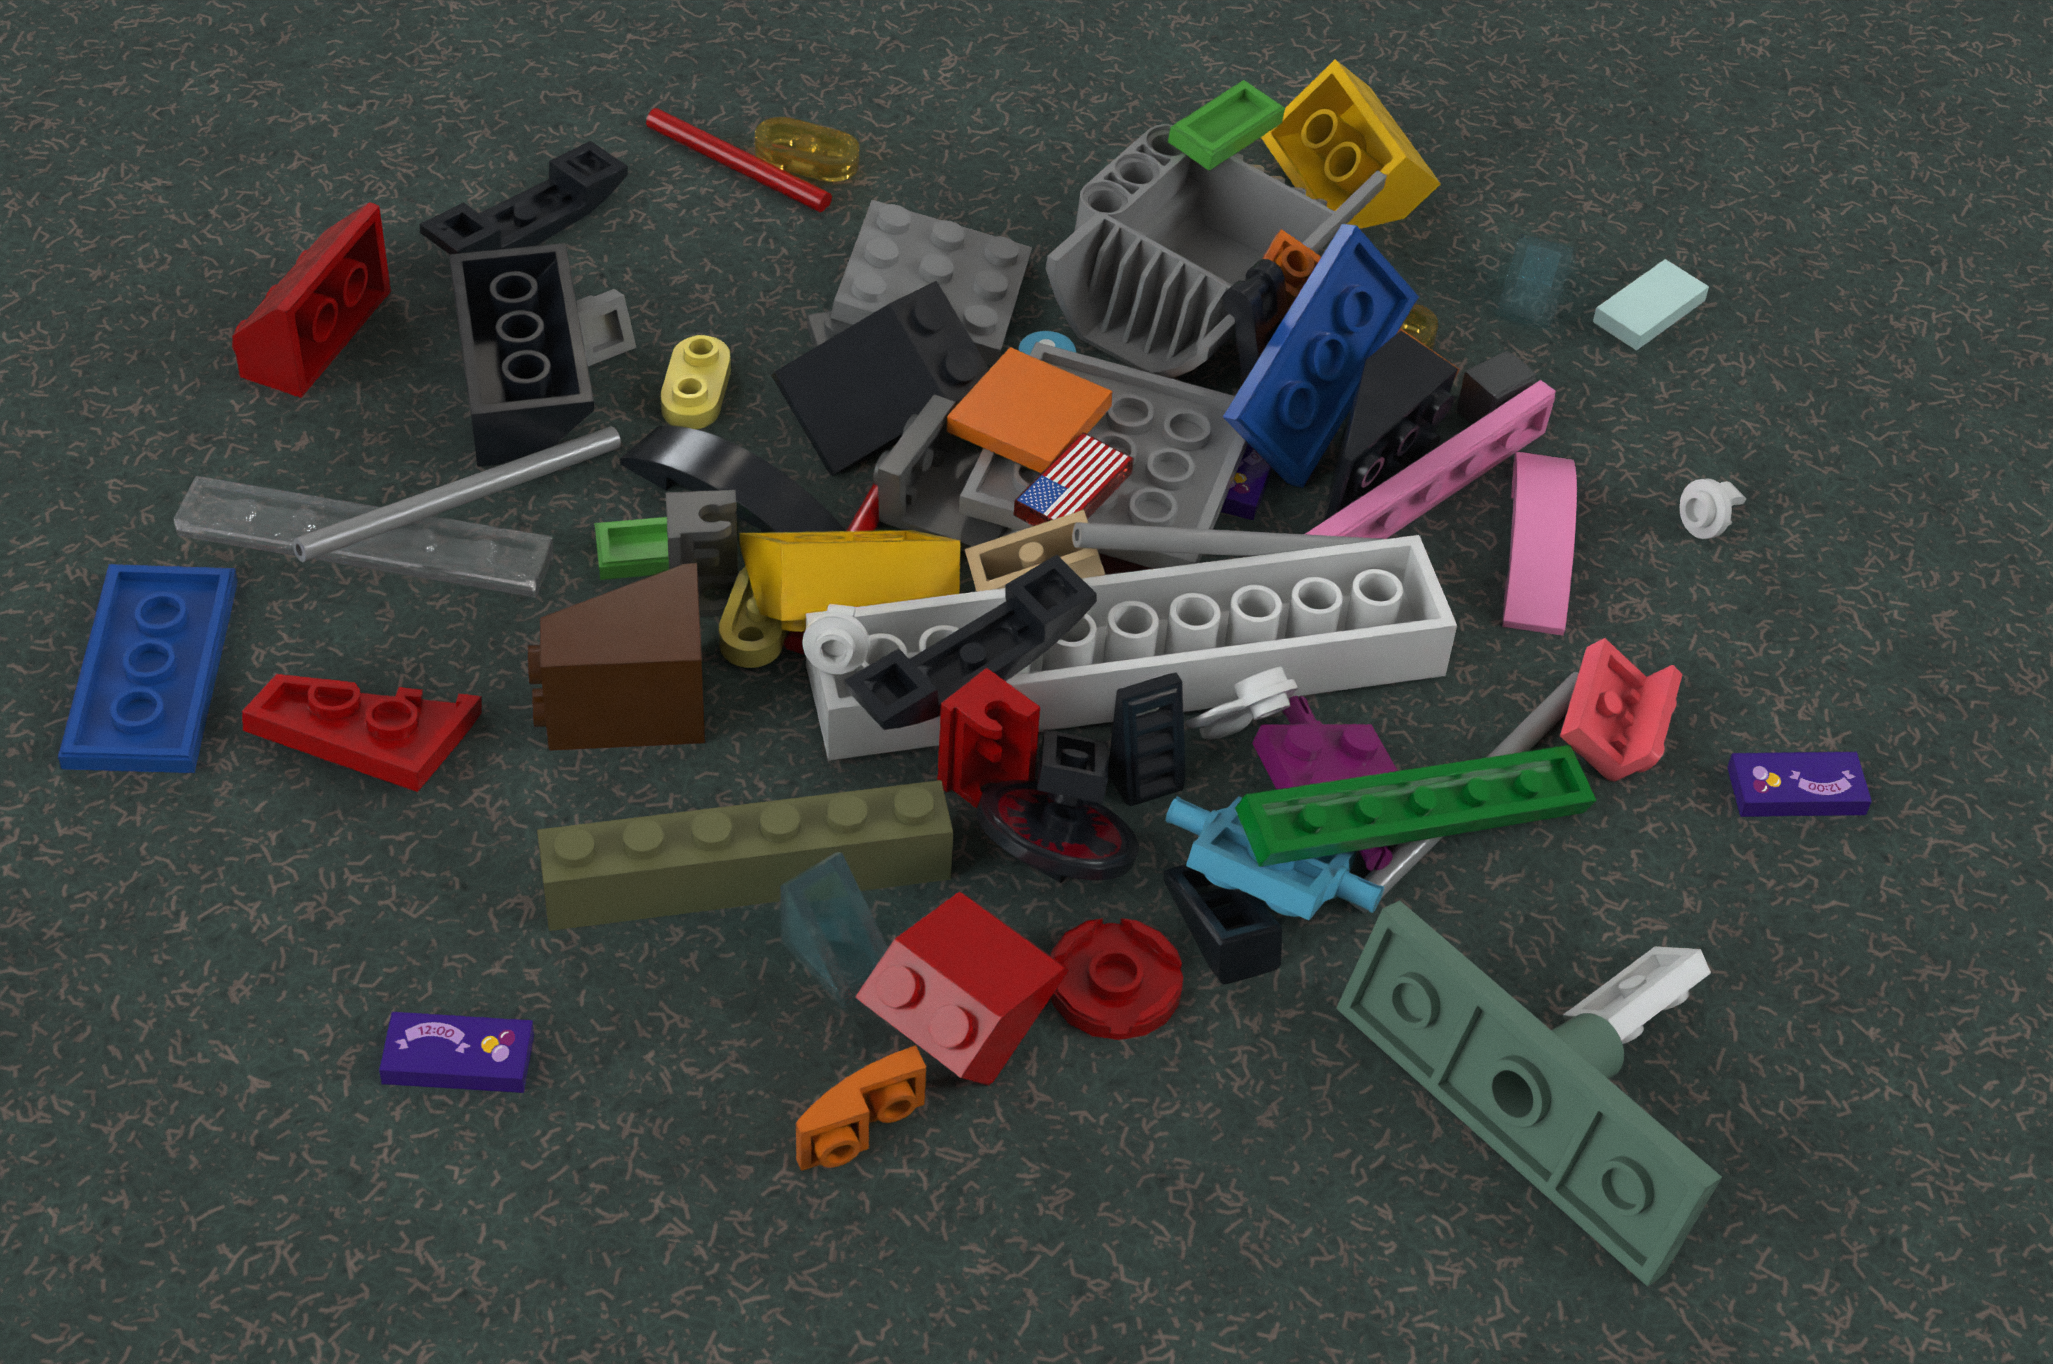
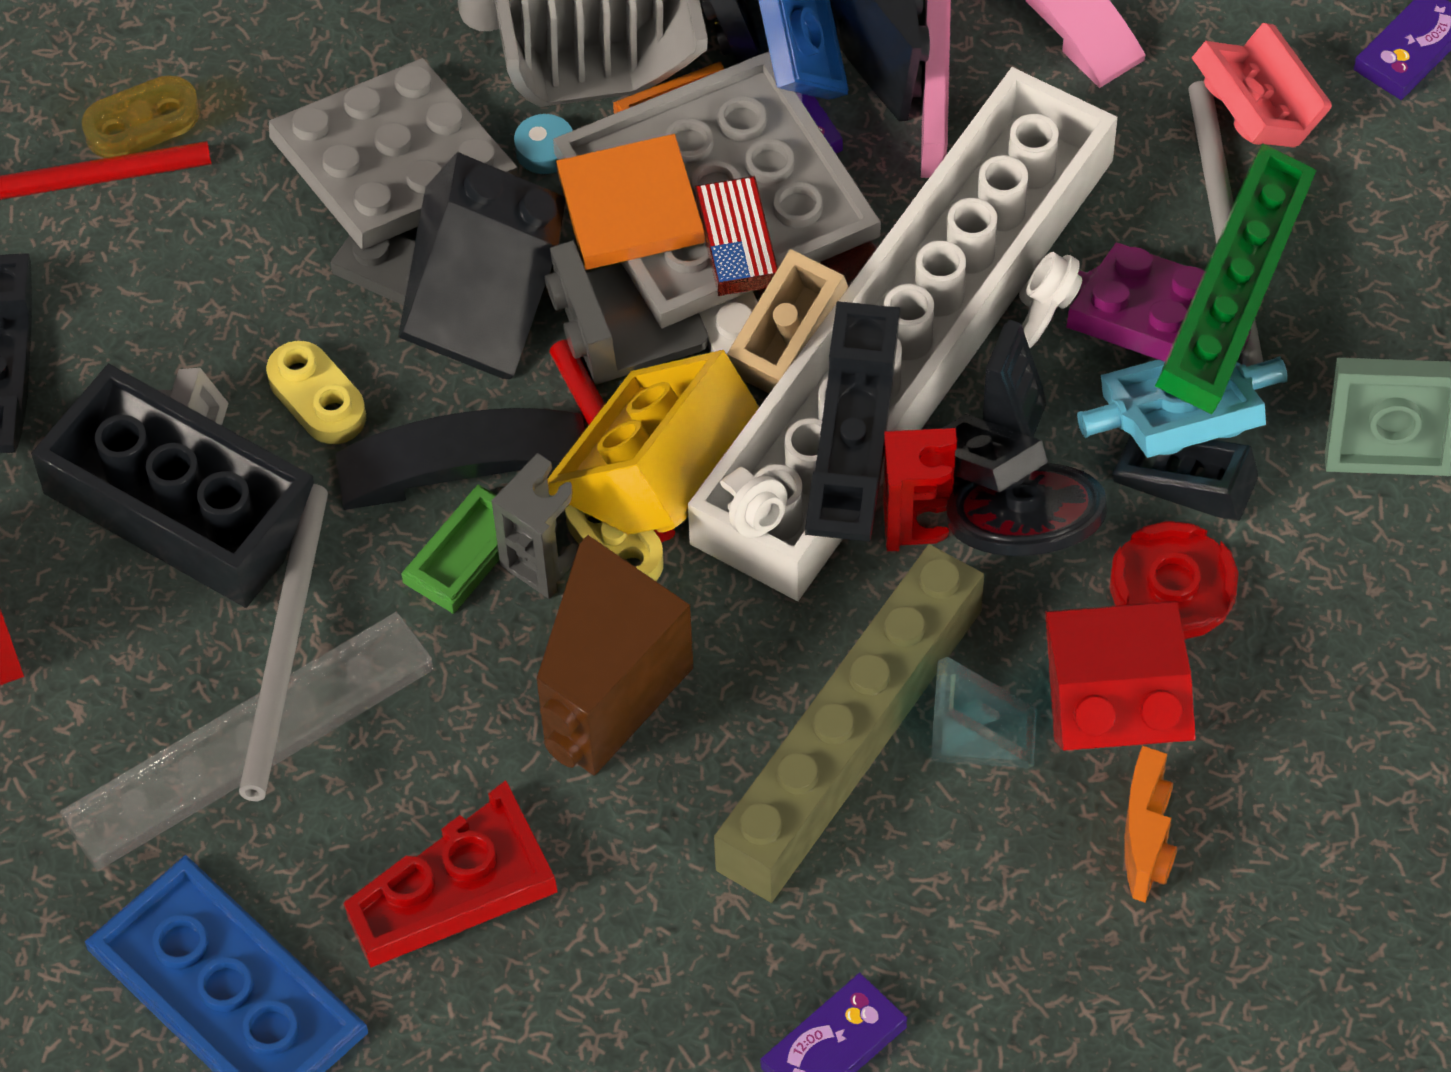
camera: 40 degrees left, 10 degrees up
(1198, 540) = (901, 188): light grey piece -> none

